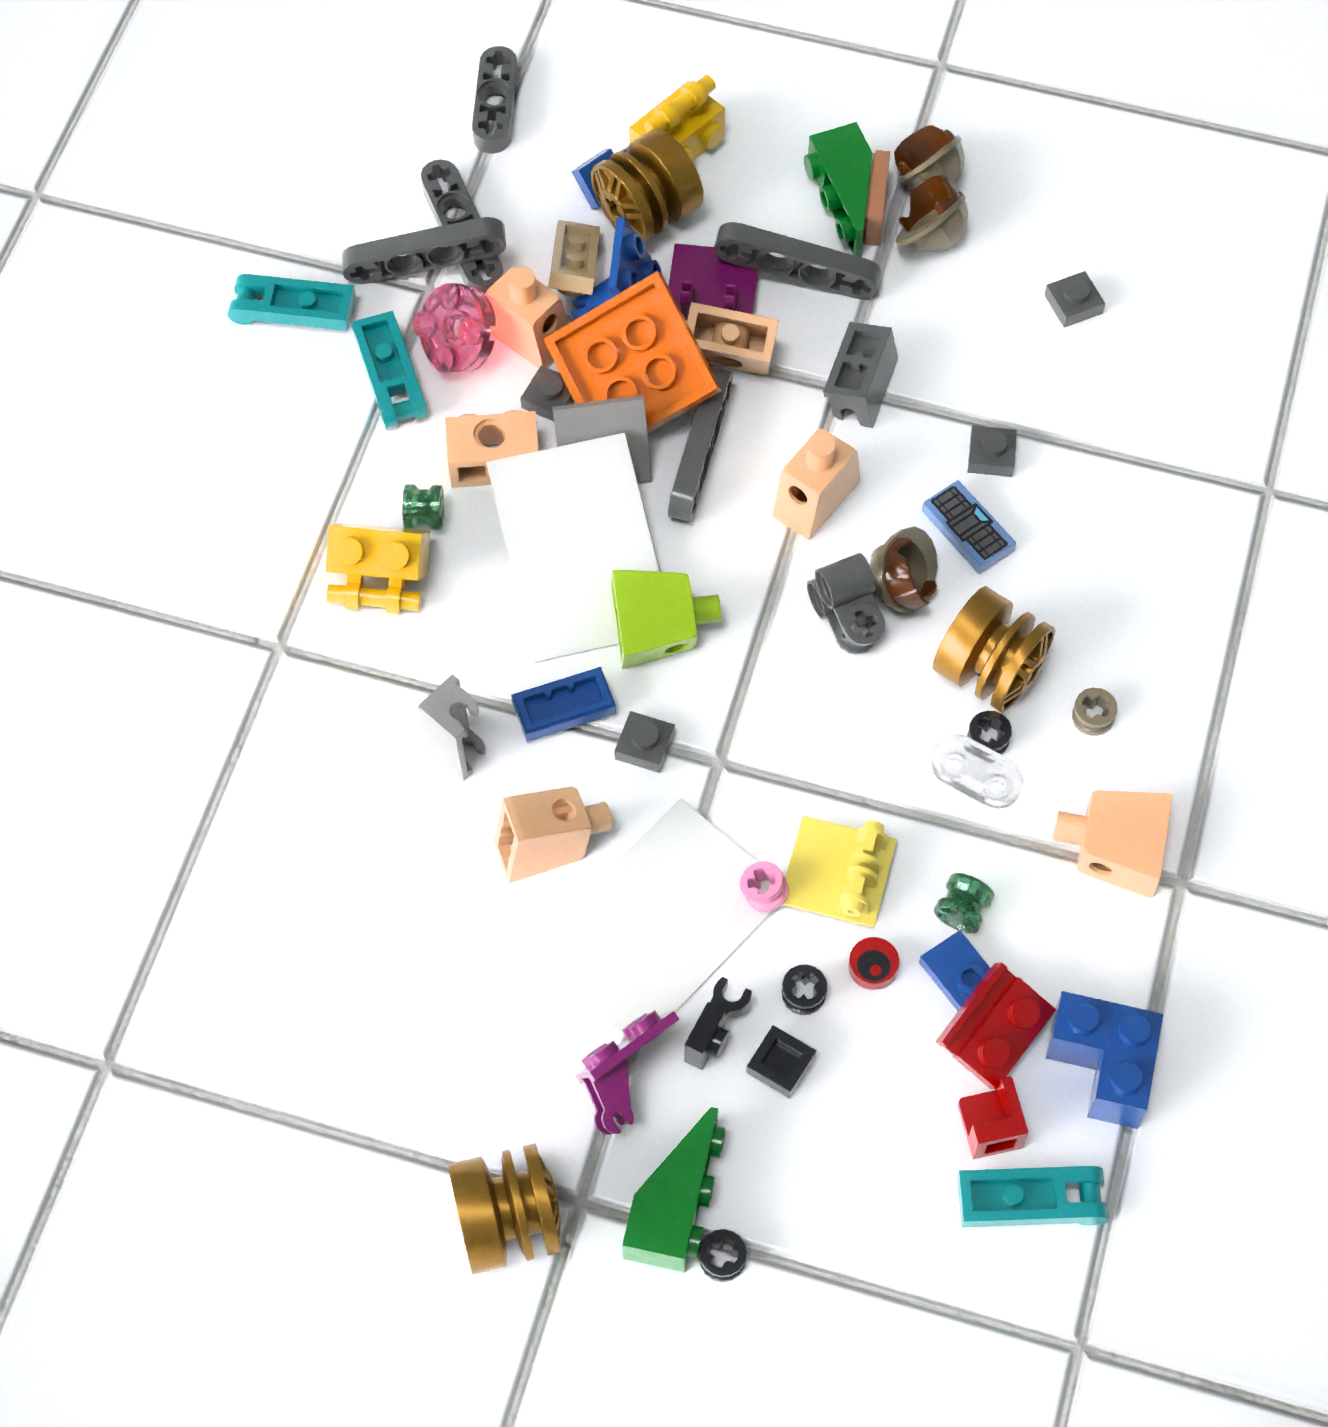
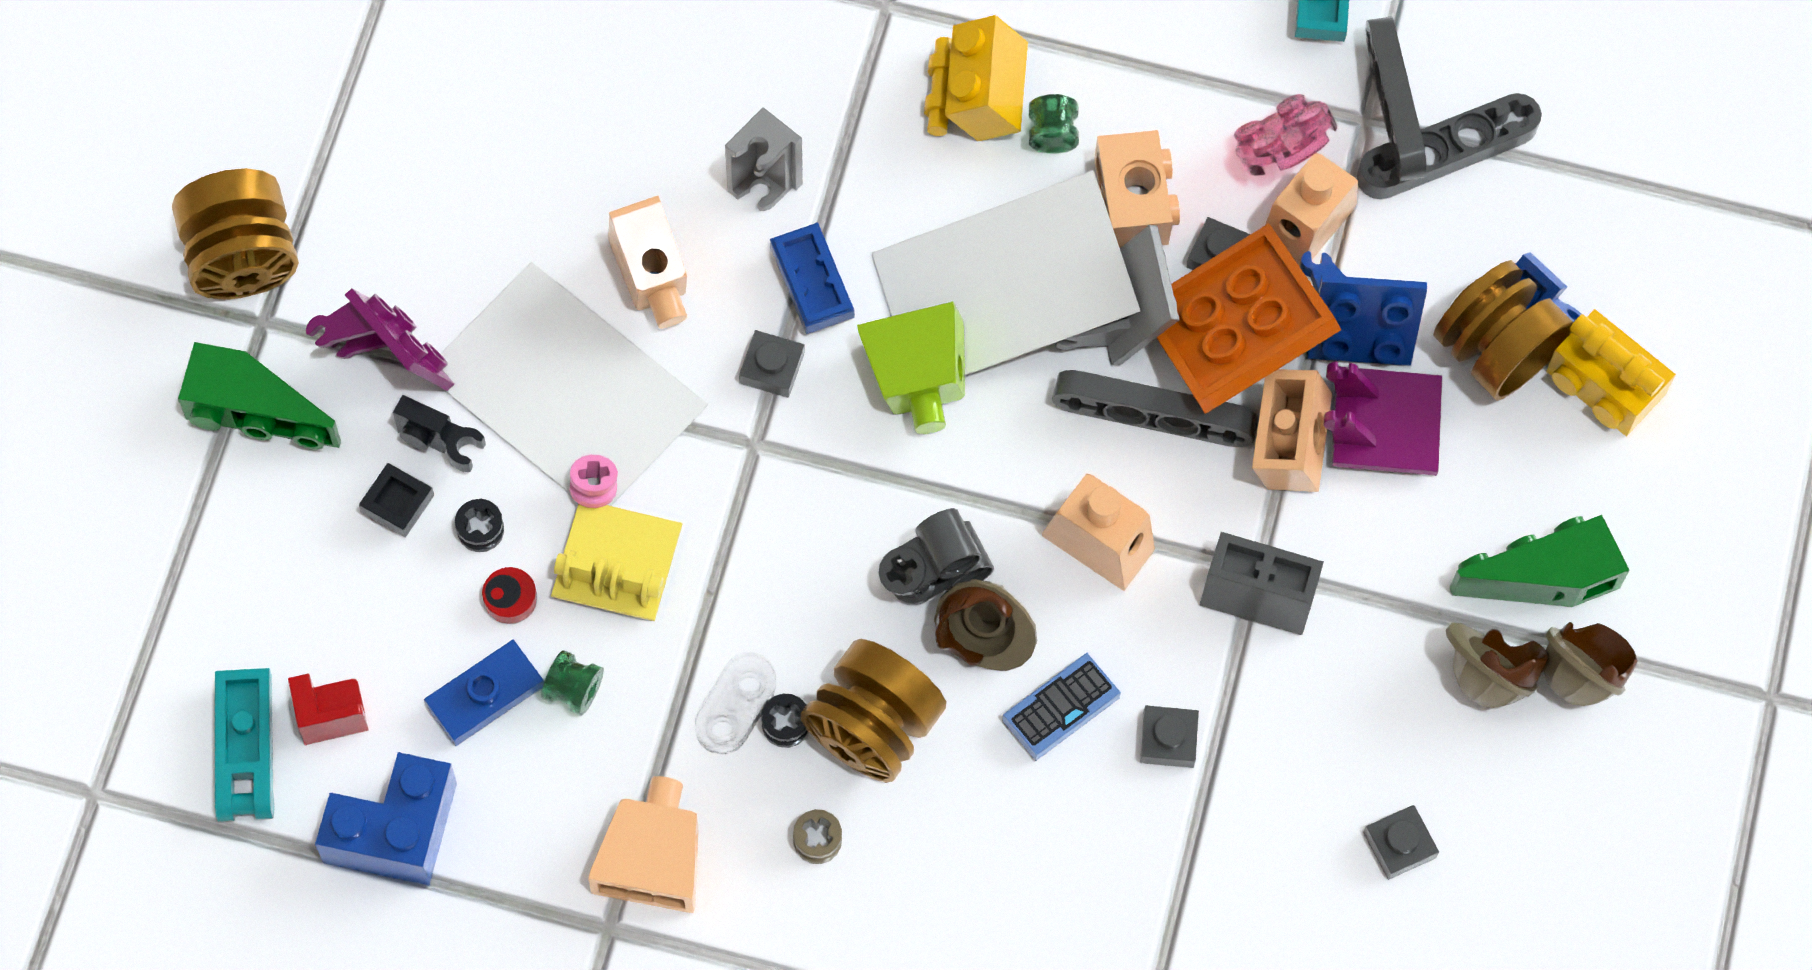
camera: 85 degrees right, 5 degrees up
(389, 368) = (1239, 79): teal plate -> none
(501, 113) = (1663, 157): dark grey beam -> none
(574, 258) = (1393, 253): tan plate -> none
(729, 1269) = (191, 434): black bush -> none
(751, 247) = (1416, 508): dark grey beam -> none
(876, 198) = (1528, 604): nougat tile -> none
(995, 1025) = (427, 708): red plate -> none

